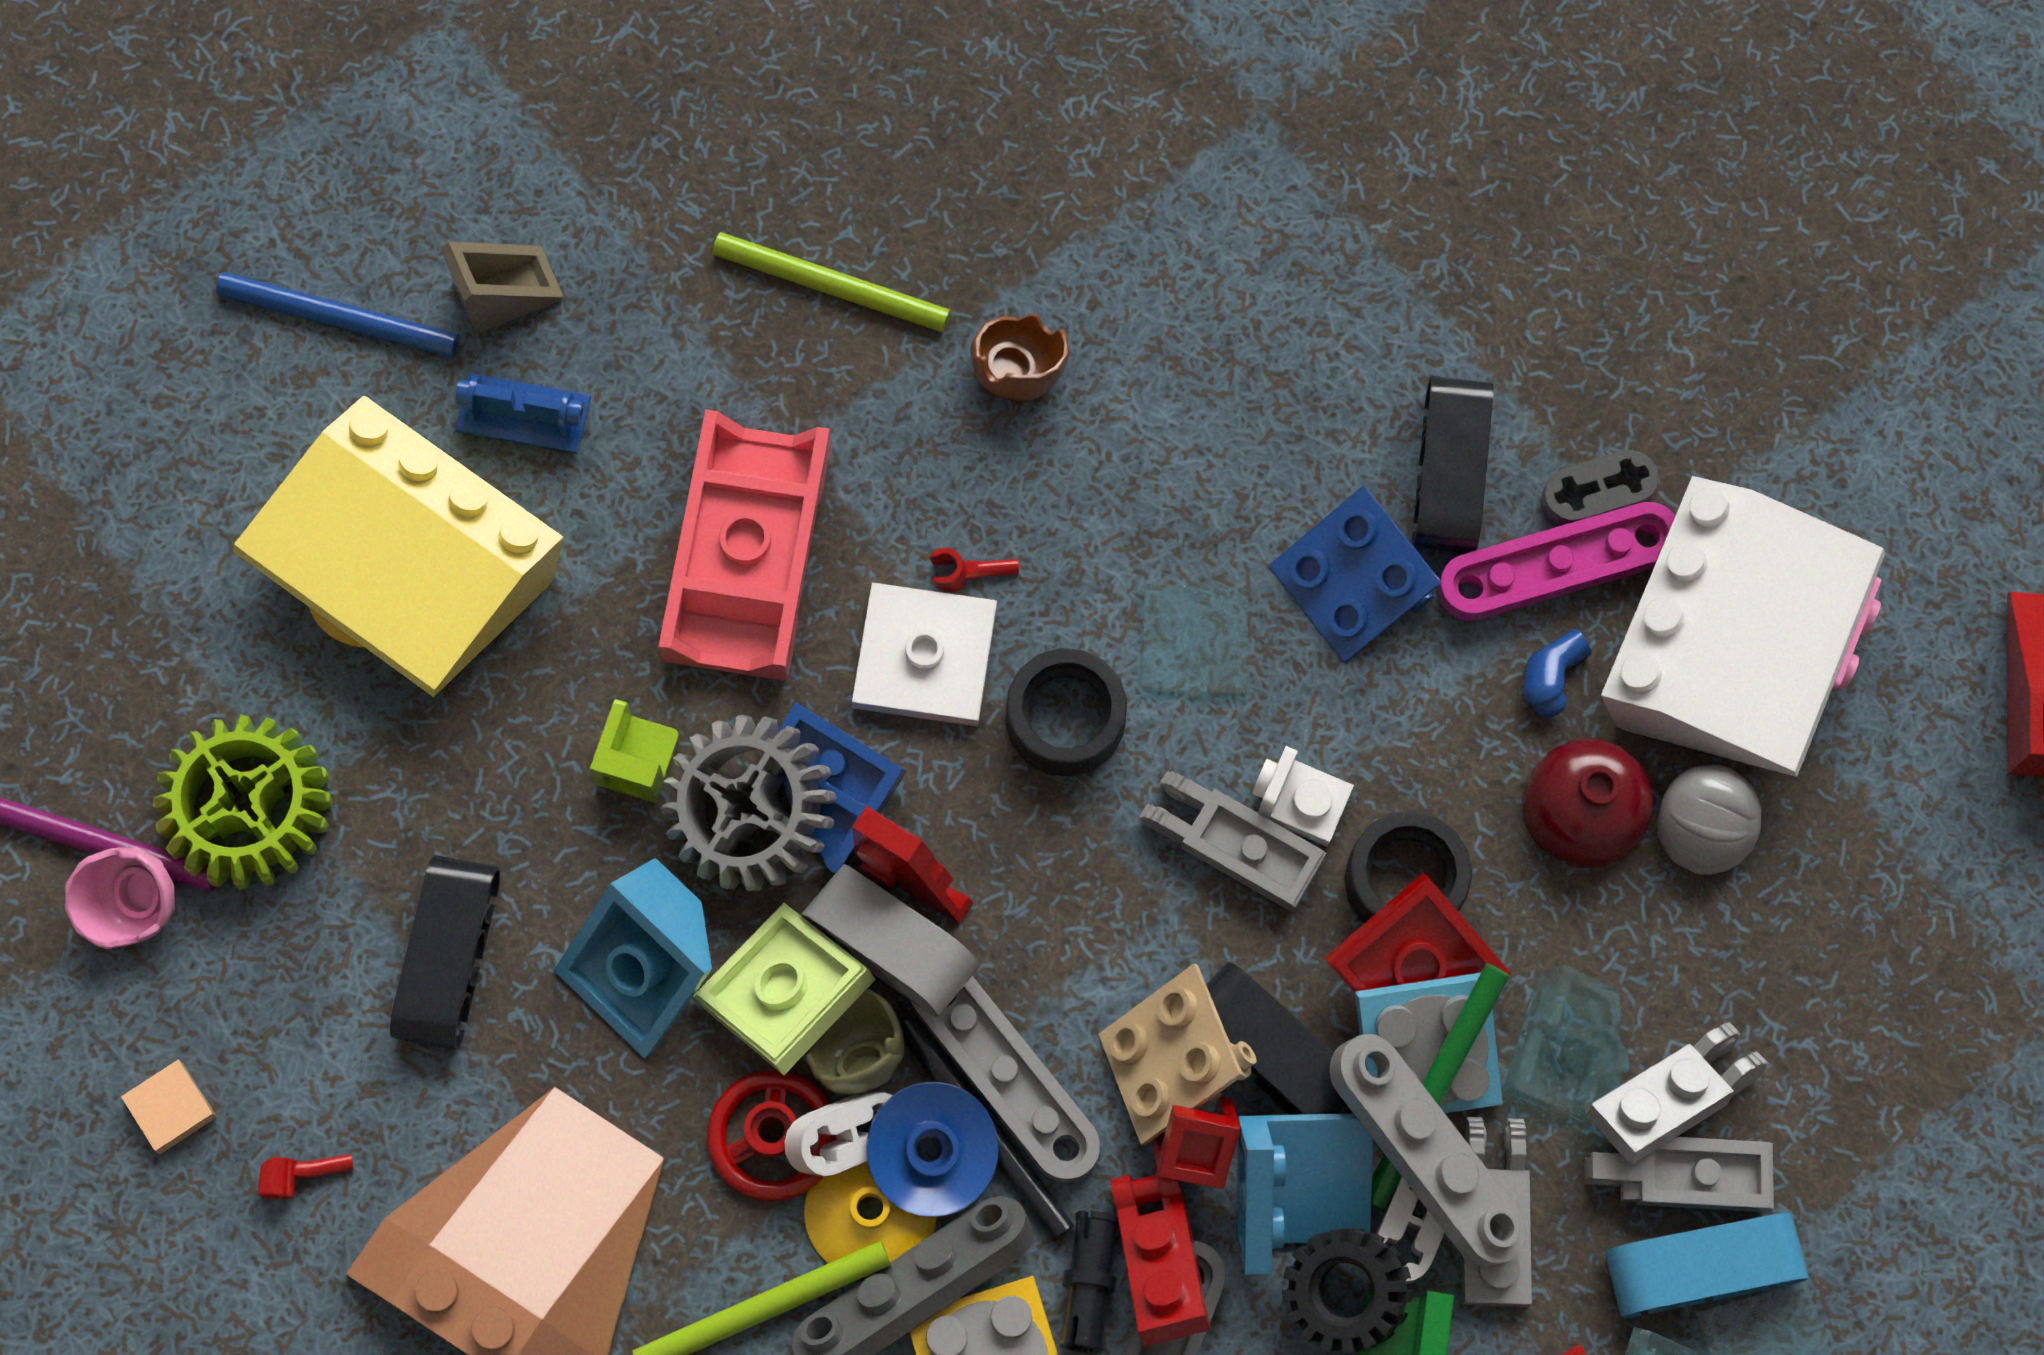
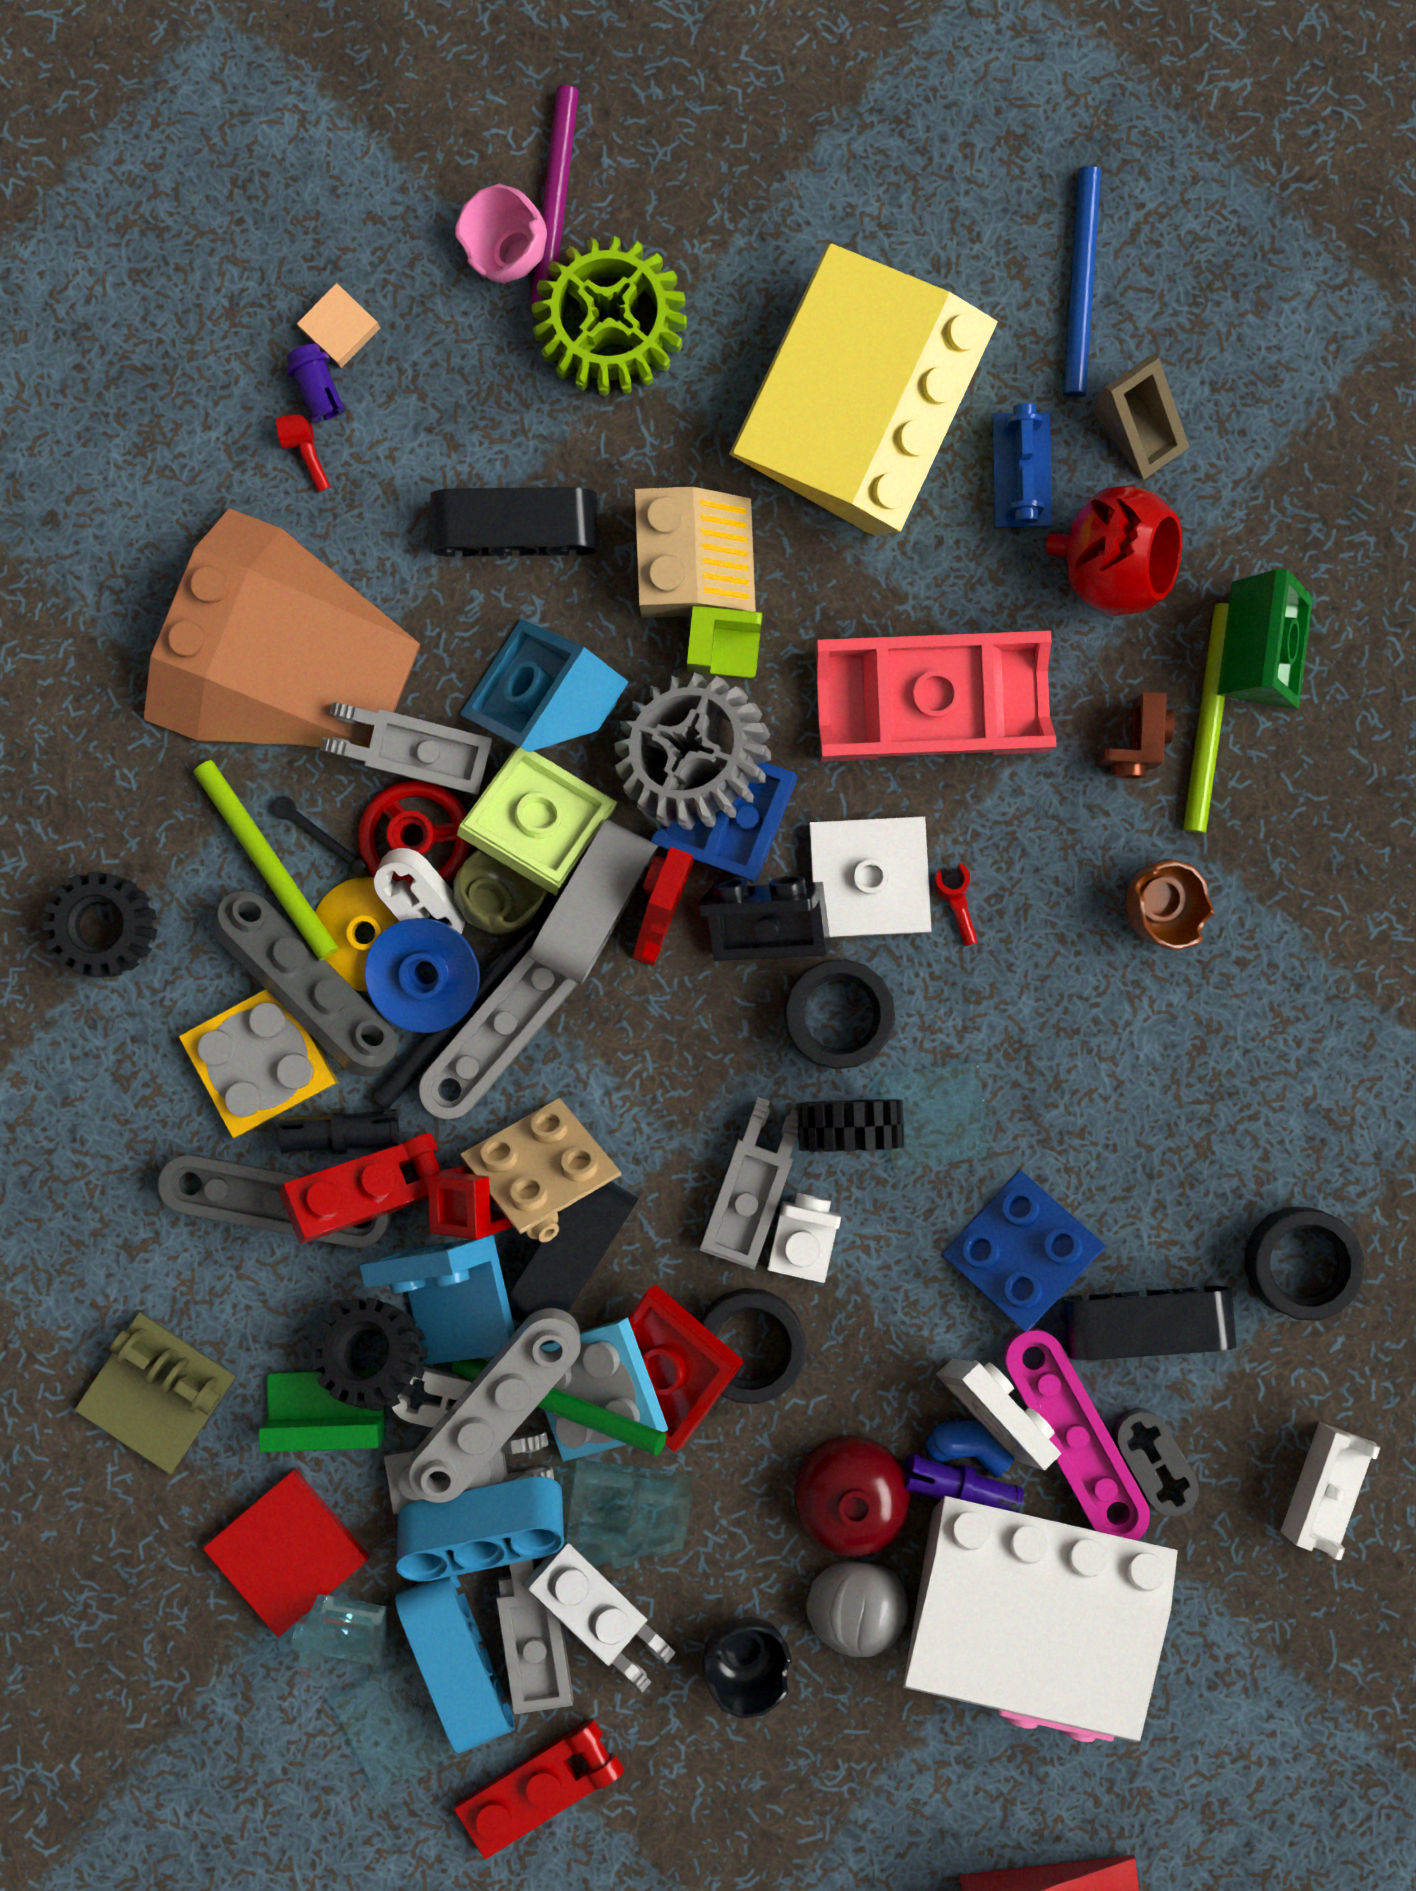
camera: 85 degrees right, 15 degrees up
(228, 1143) = (315, 382): none -> dark purple pin
(526, 768) = (693, 551): none -> tan slope
(637, 326) = (1121, 550): none -> red piece
(673, 1110) = (414, 748): none -> light grey hinge
(707, 1277) = (286, 809): none -> black hinge
(762, 211) = (1266, 639): none -> green slope
(836, 341) = (1151, 730): none -> copper bracket
(948, 762) = (766, 920): none -> black bracket
(1189, 717) = (850, 1125): none -> black tyre
(1426, 260) = (1349, 1264): none -> black tyre
(1510, 630) = (986, 1397): none -> white plate
(1563, 1202) = (480, 1529): none -> dark azure beam
(1585, 702) = (959, 1484): none -> dark purple pin
(1652, 328) = (1328, 1489): none -> white hinge
(1773, 940) = (748, 1684): none -> black hair
(1860, 1204) = (537, 1789): none -> red plate

